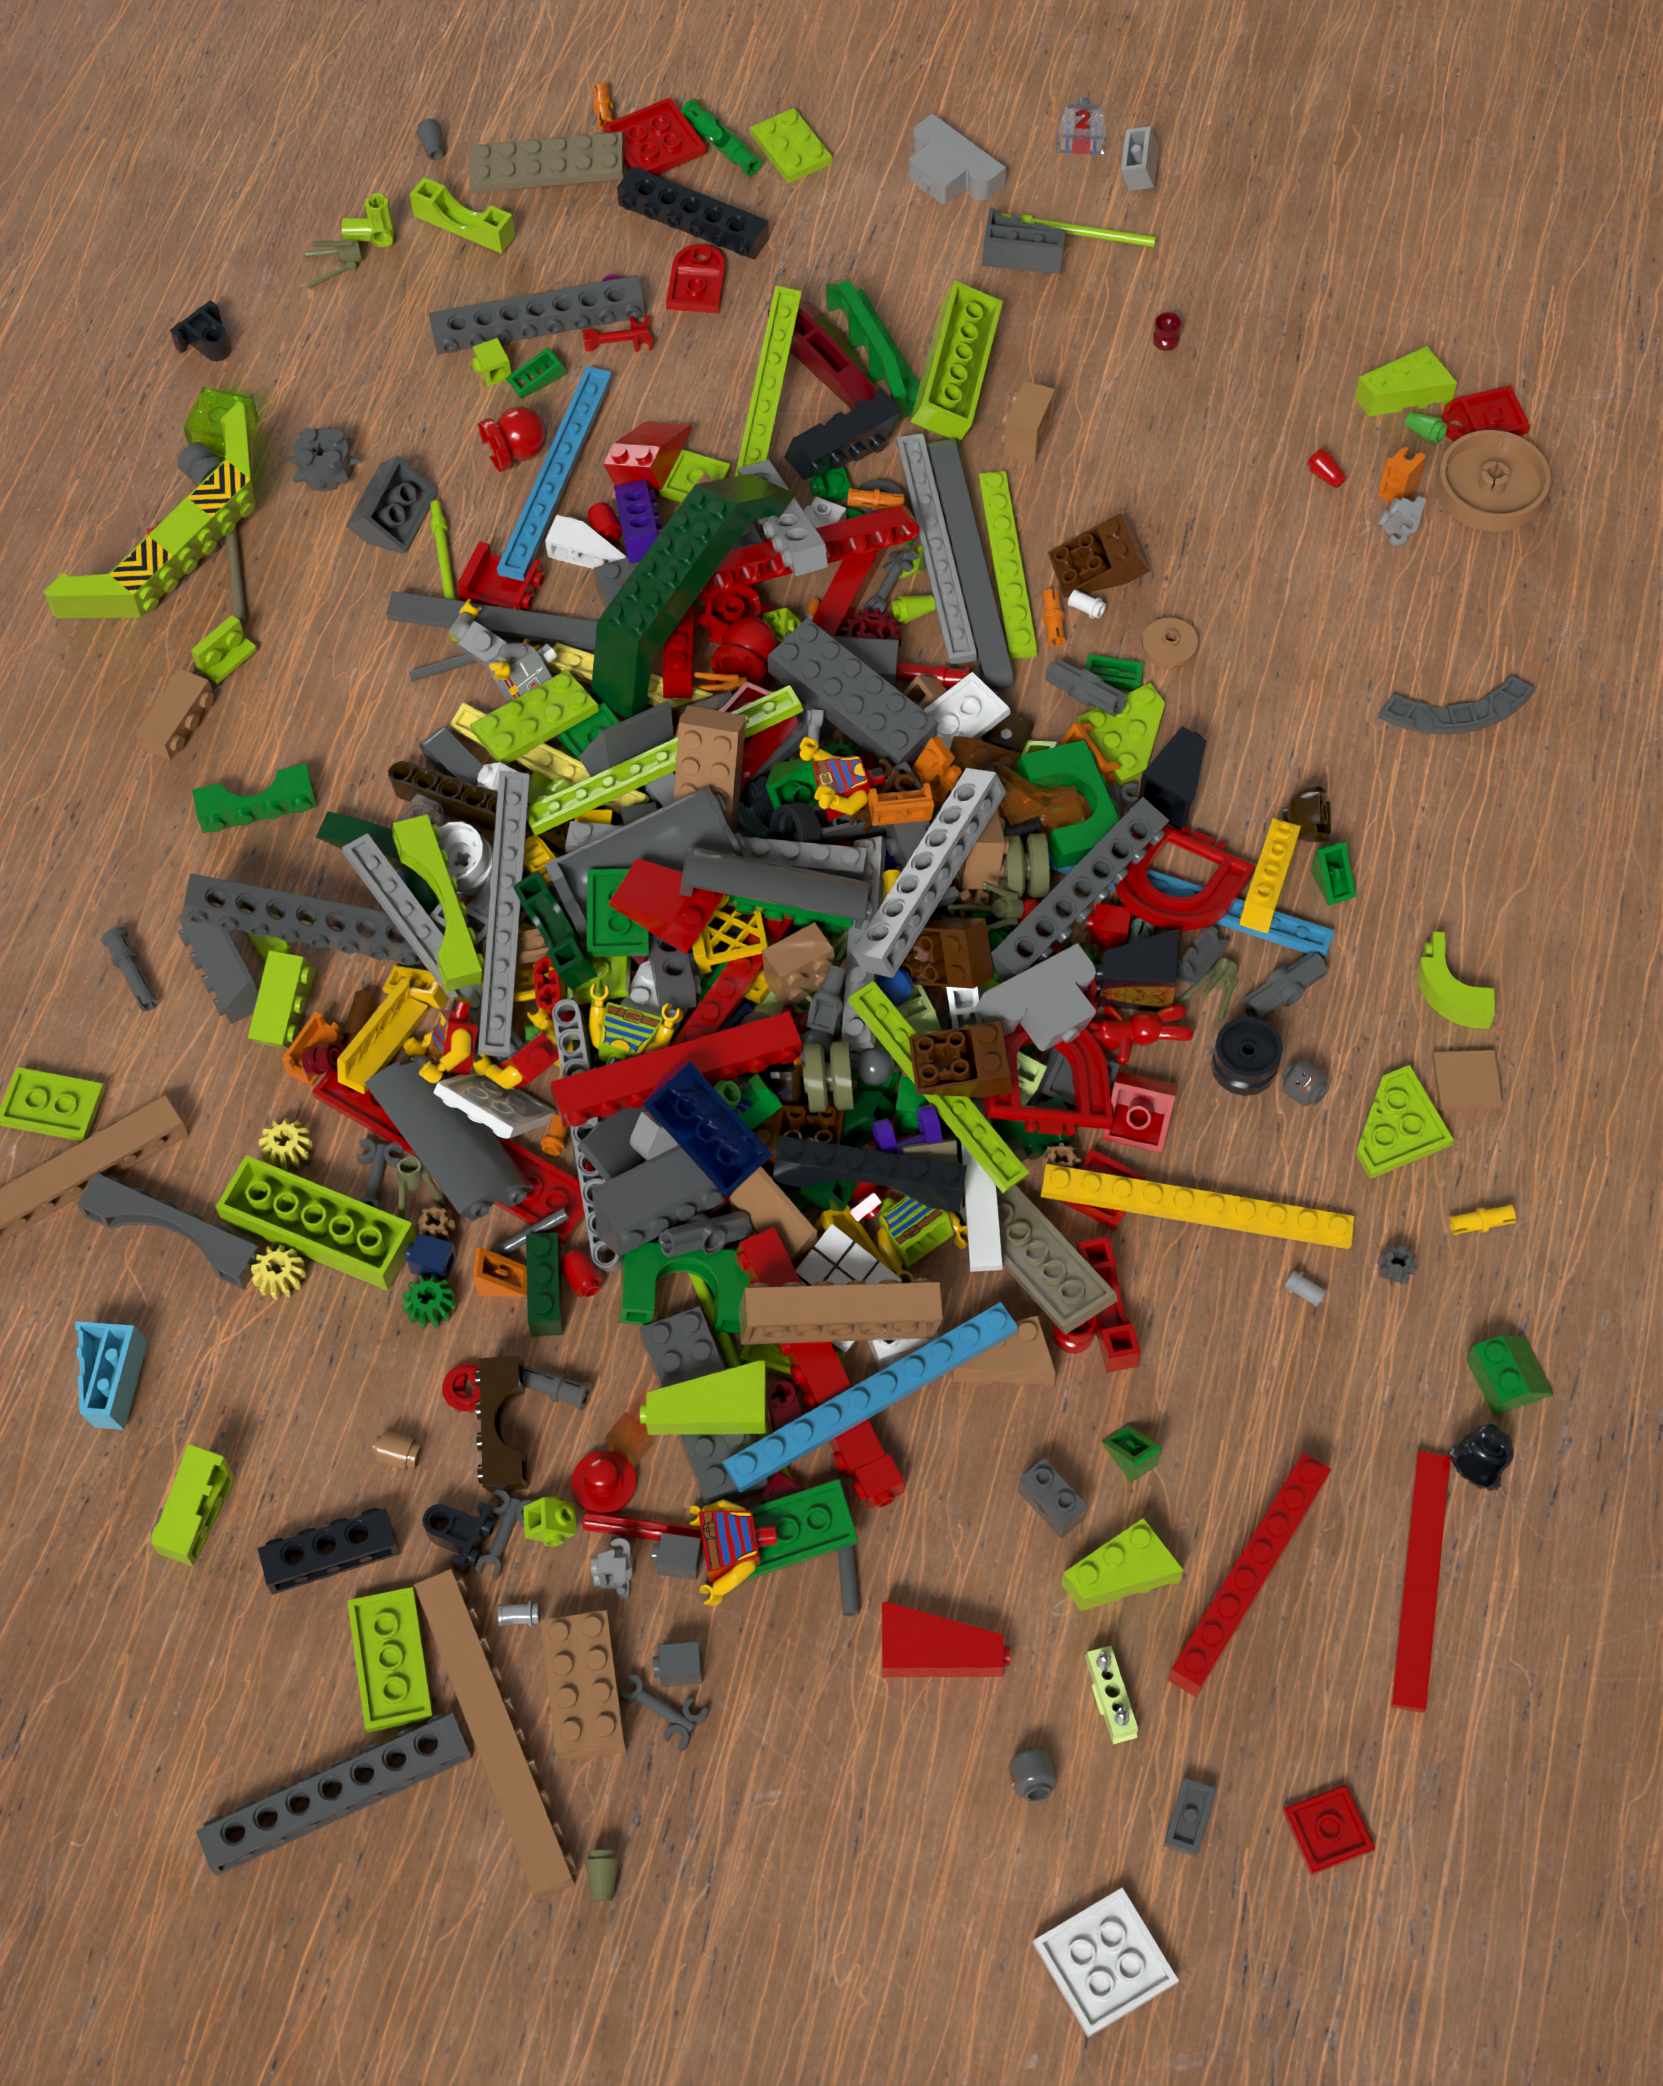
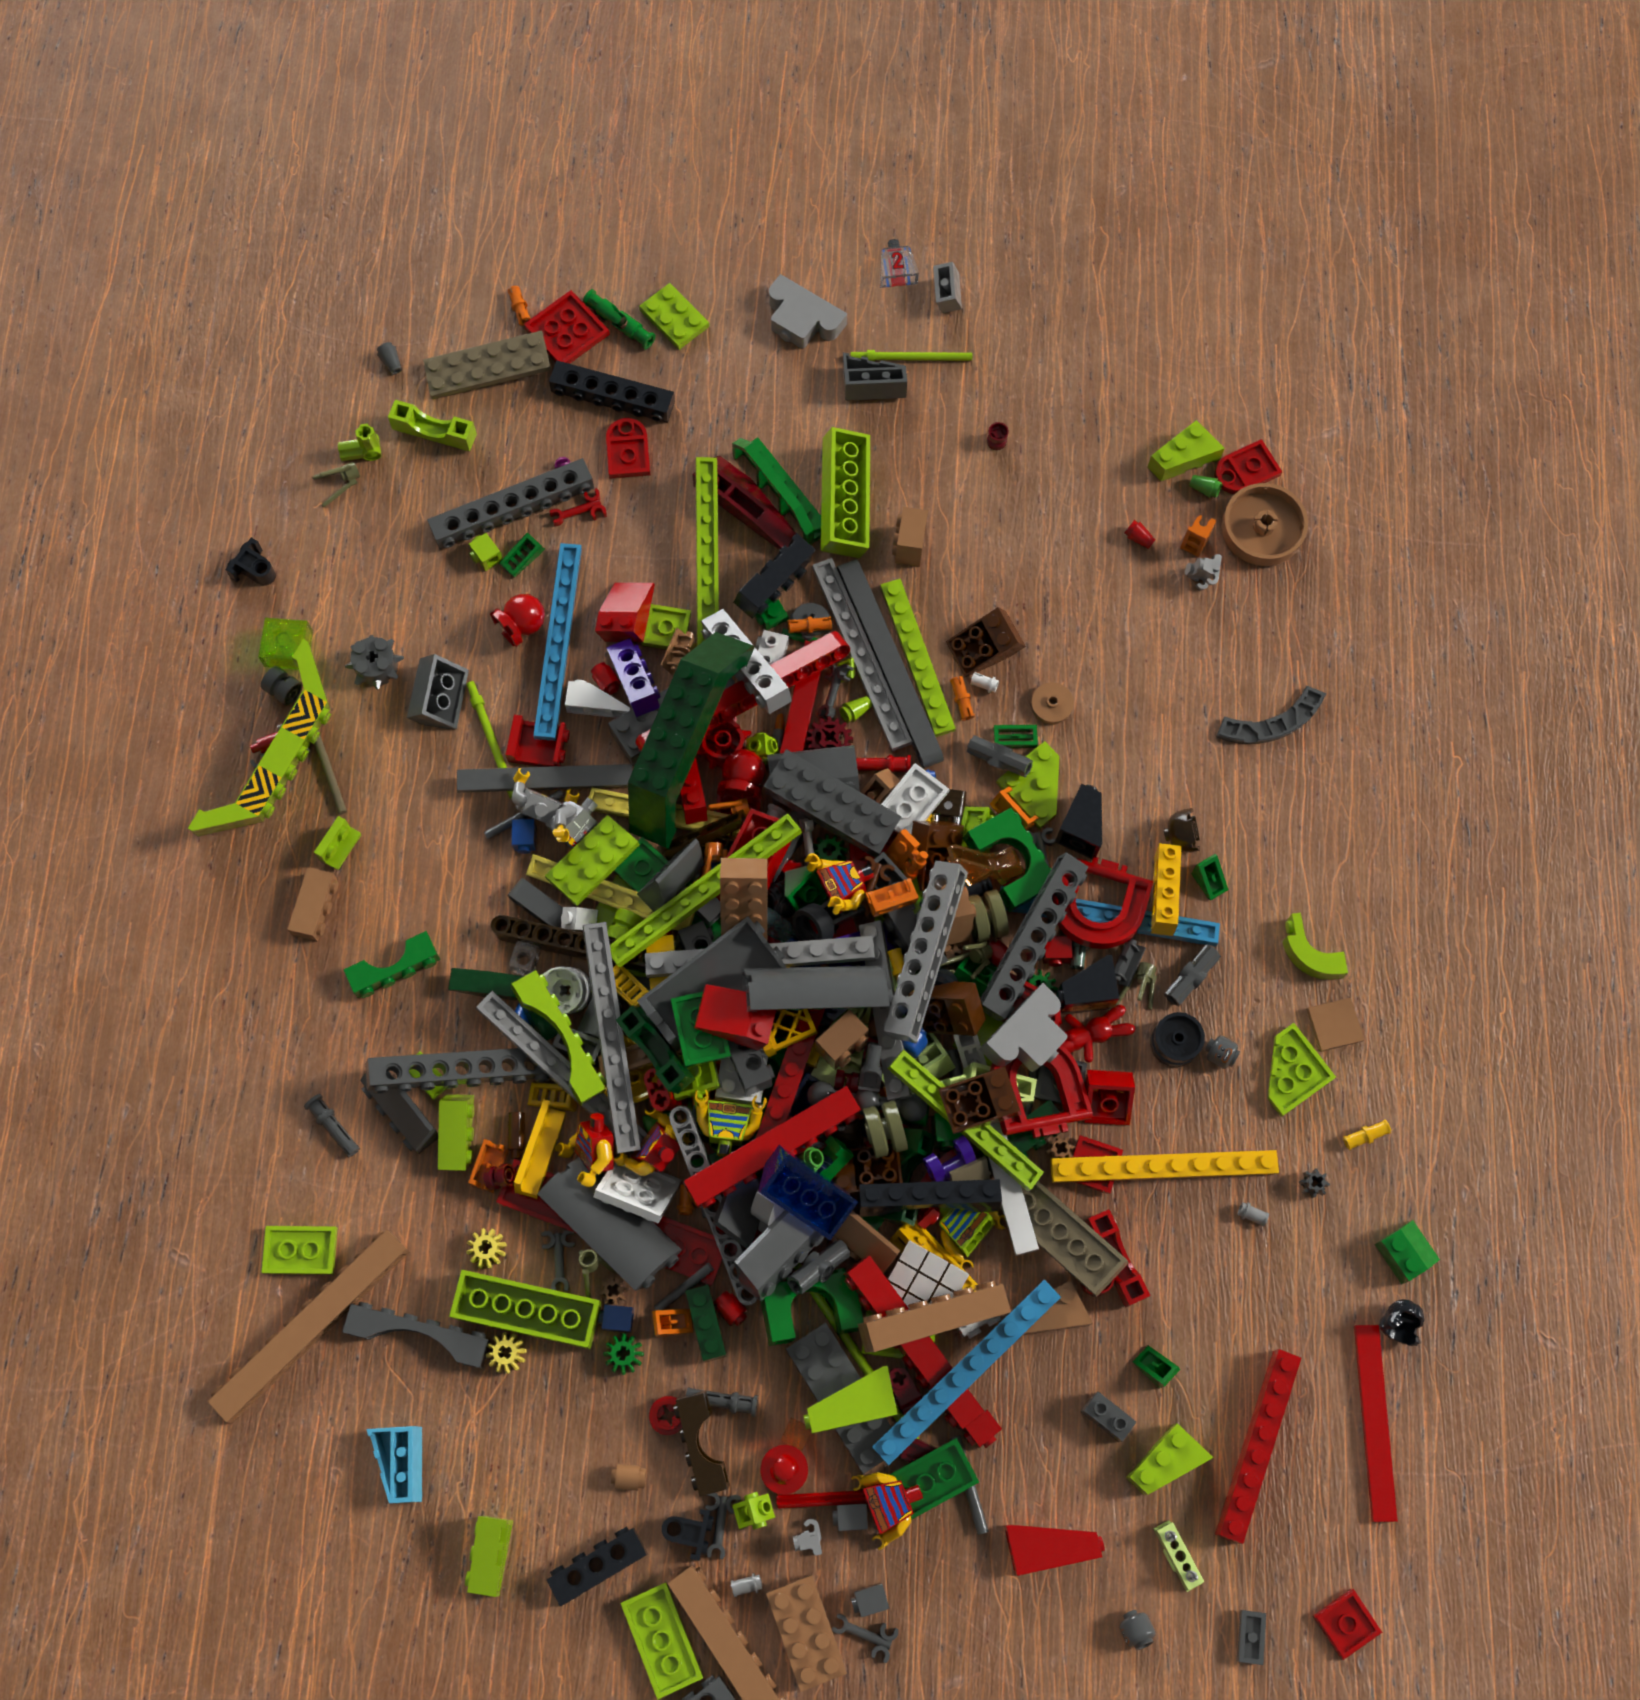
camera: 15 degrees left, 10 degrees up
(457, 681) = (524, 835): none -> blue brick

